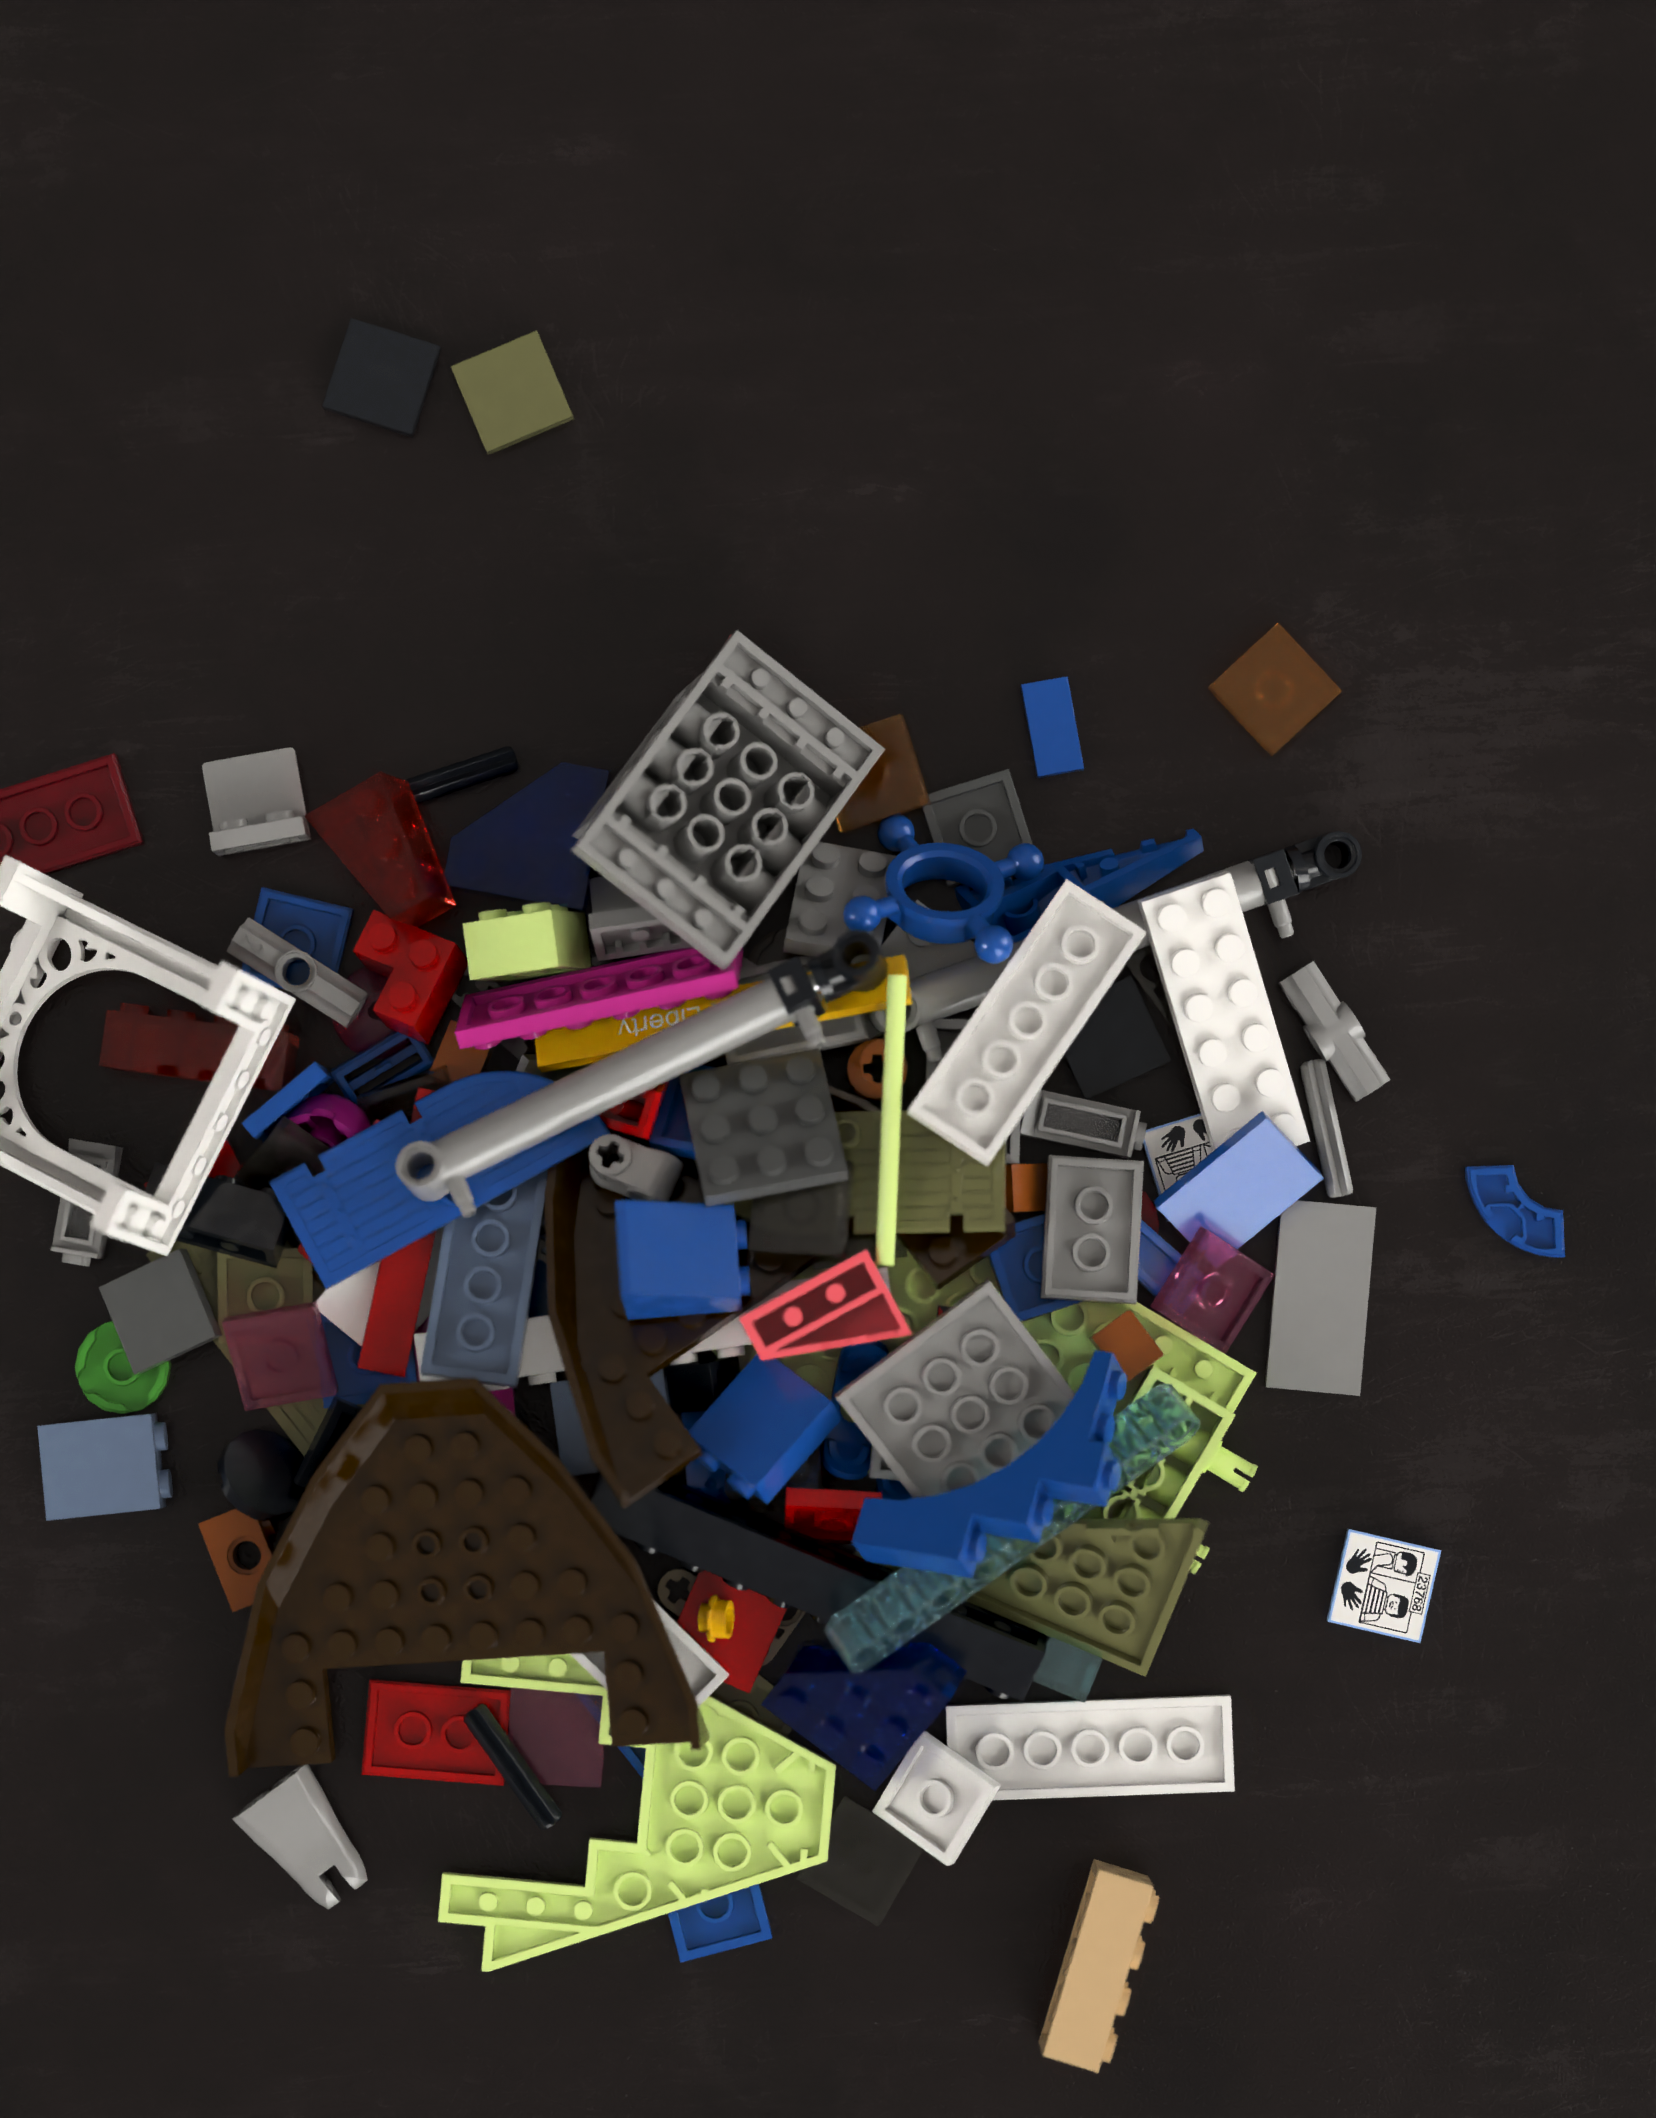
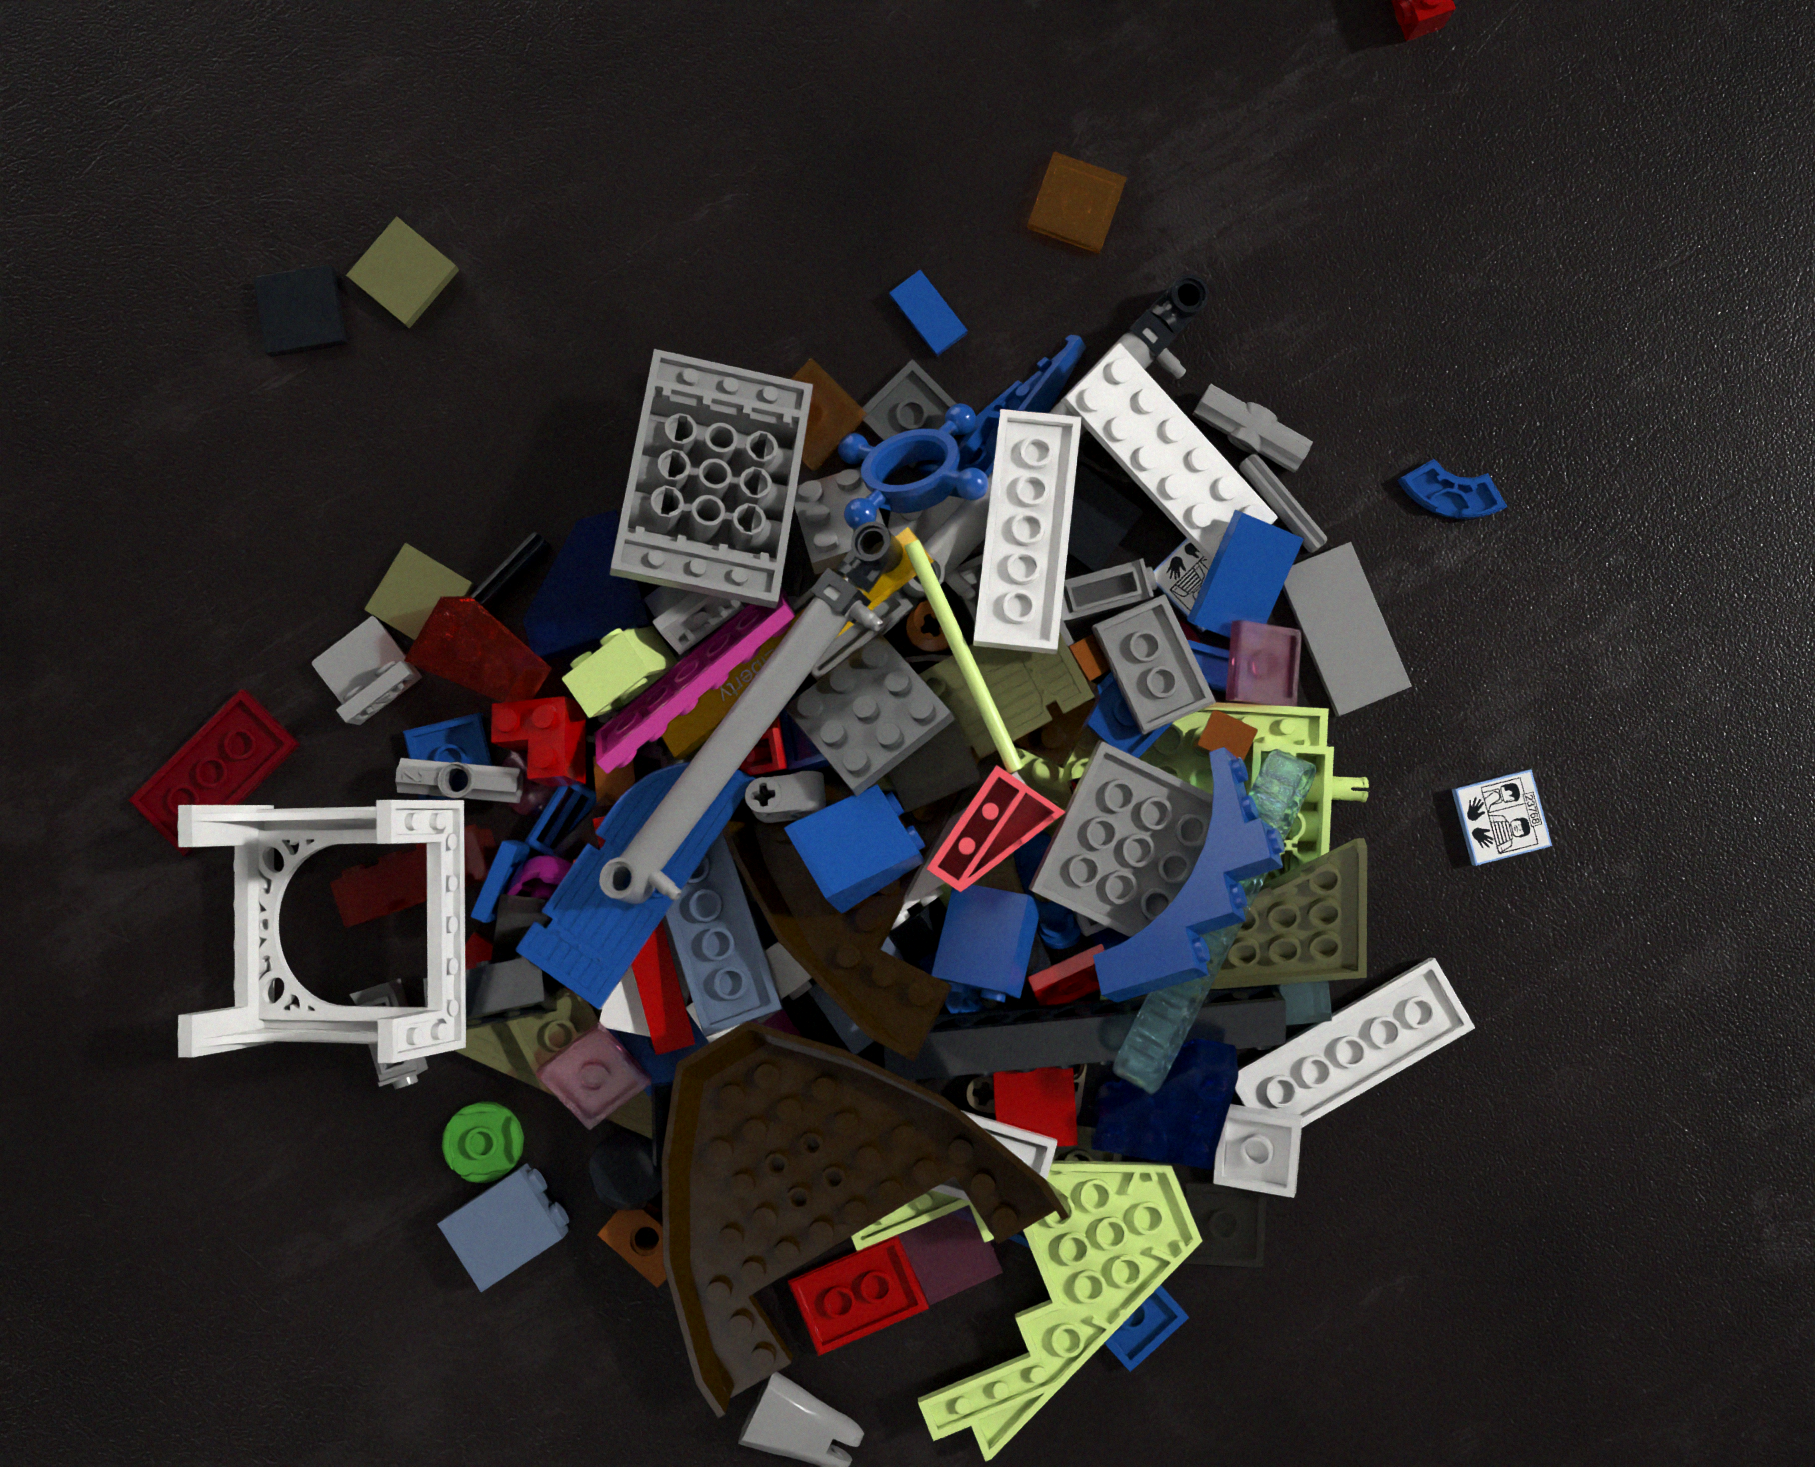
camera: 30 degrees left, 0 degrees up
(160, 1311) = (486, 1088): dark grey tile -> none
(350, 746) = (413, 590): none -> olive tile
(512, 1767) = (929, 1292): black axle -> none
(716, 1618) = (1025, 1103): yellow plate -> none
(1096, 1966) = (1446, 1215): tan brick -> none

